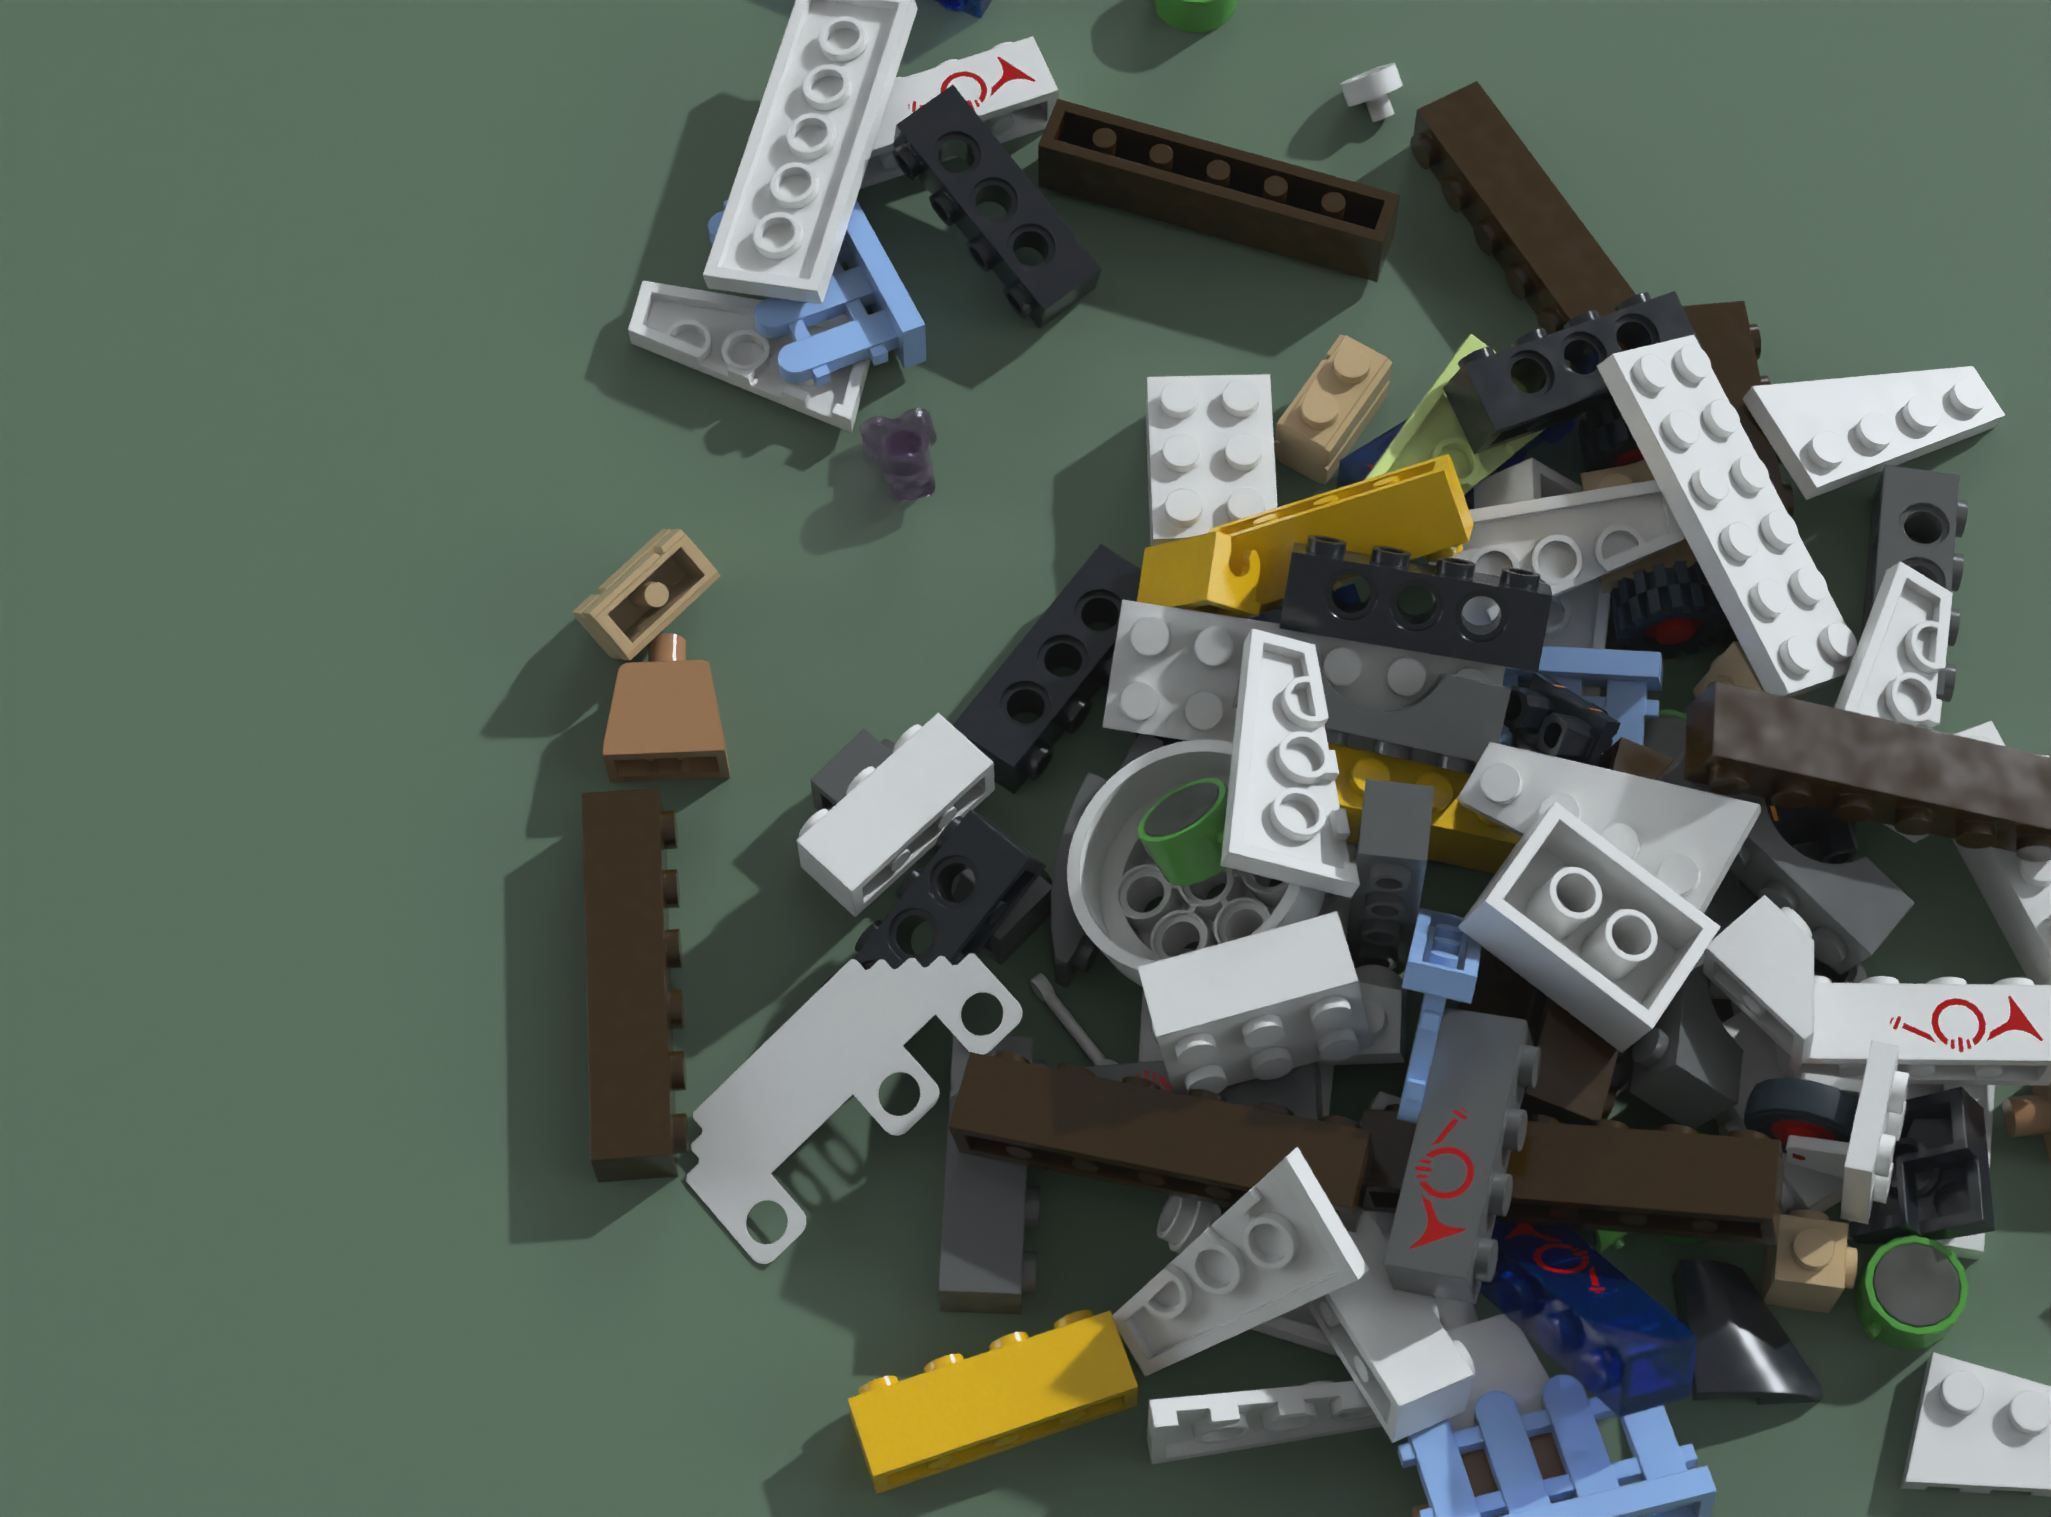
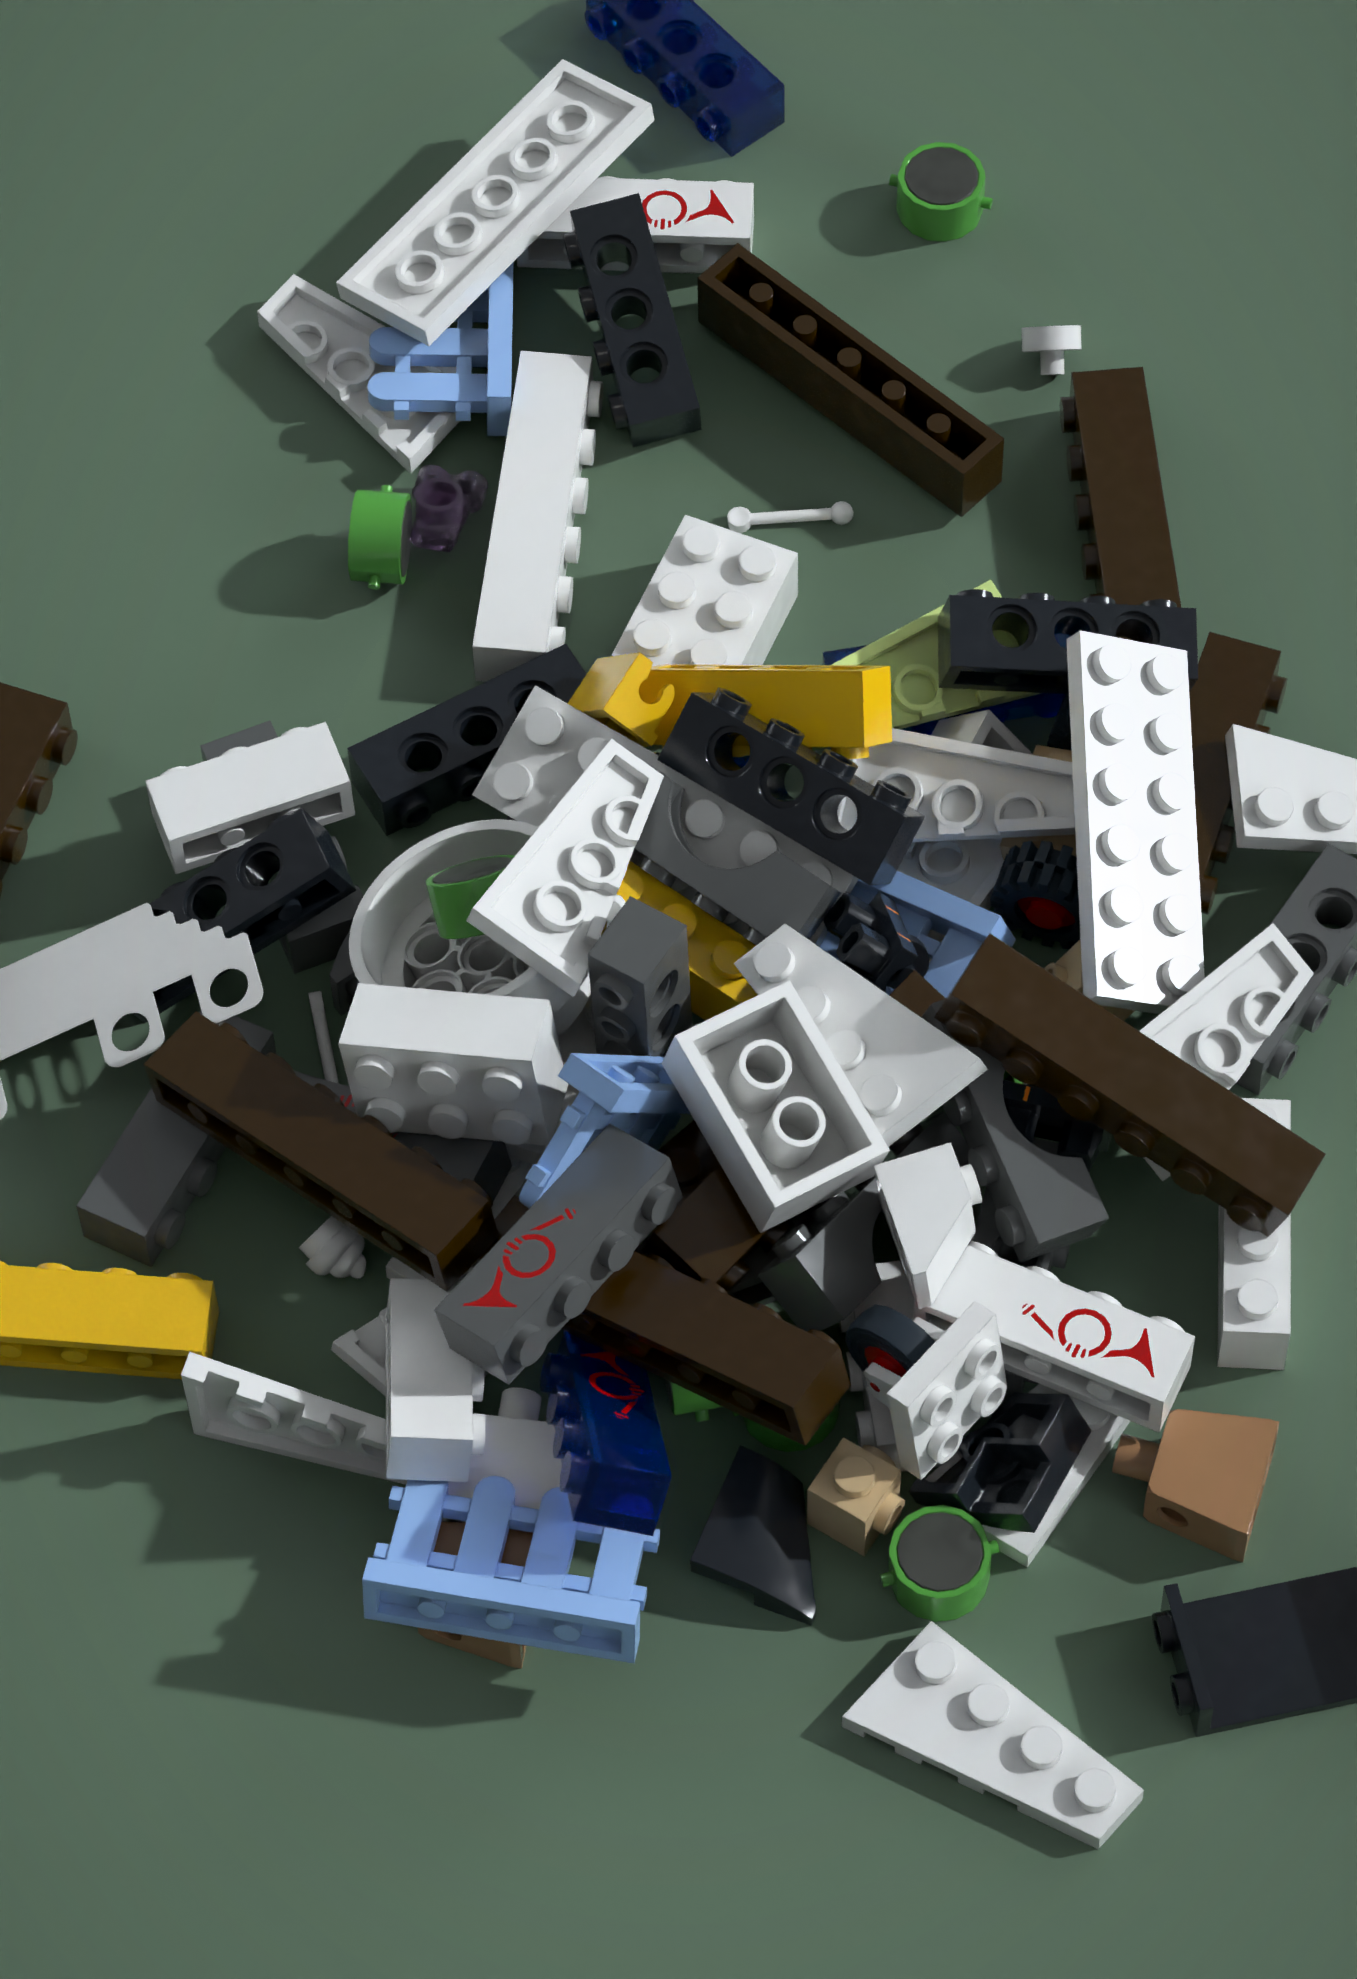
camera: 25 degrees right, 5 degrees down
(646, 594) = (147, 539): tan brick -> none
(665, 719) = (110, 652): medium nougat torso -> none
(866, 506) = (380, 537): none -> bright green piece
(997, 432) = (536, 511): none -> white brick
(1178, 359) = (741, 519): none -> white hinge
(1251, 1265) = (331, 1281): white wing -> none
(1332, 409) = (849, 606): tan brick -> none

